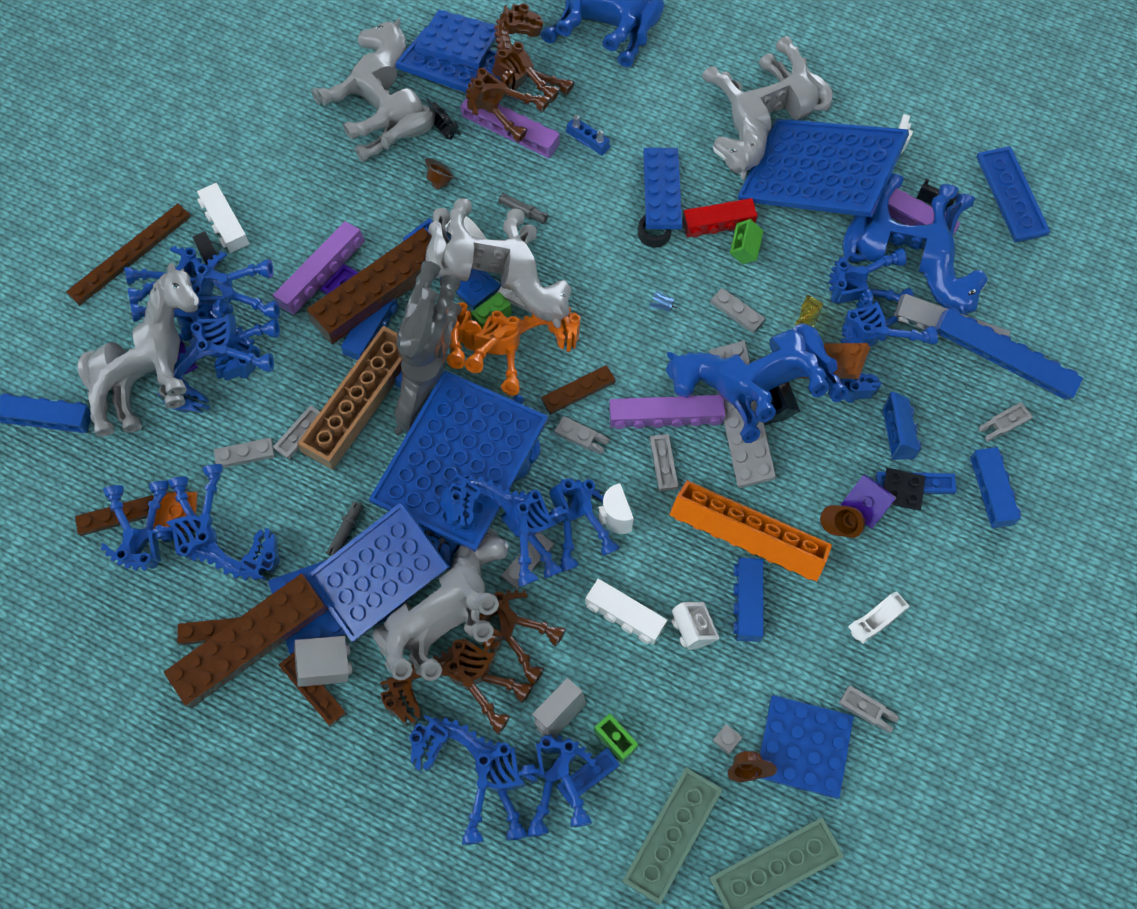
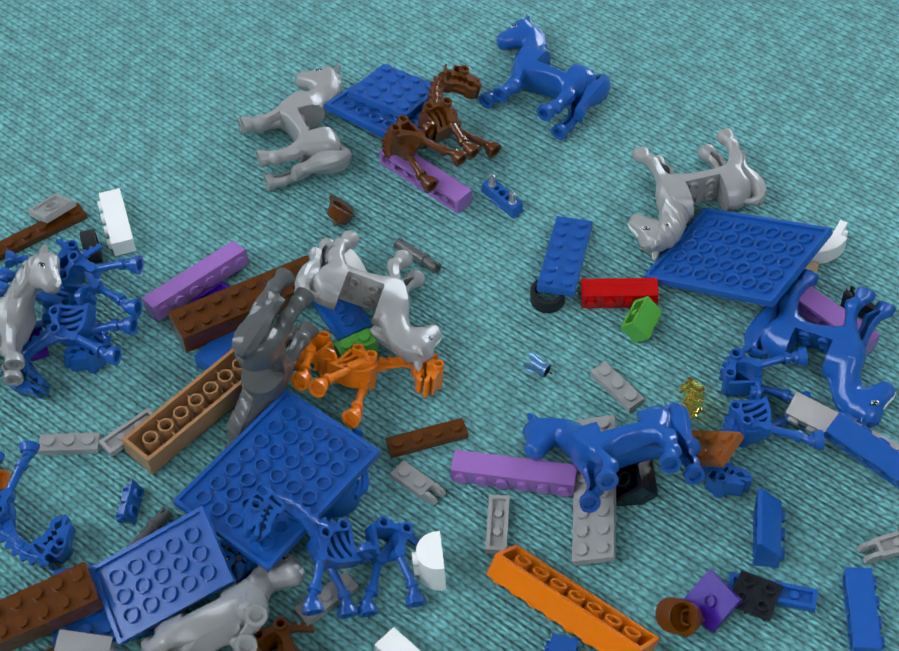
camera: 15 degrees right, 15 degrees down
(153, 213) = (51, 208): none -> light grey tile
(320, 493) = (132, 498): none -> blue hinge
(443, 122) = (360, 169): black hinge -> none

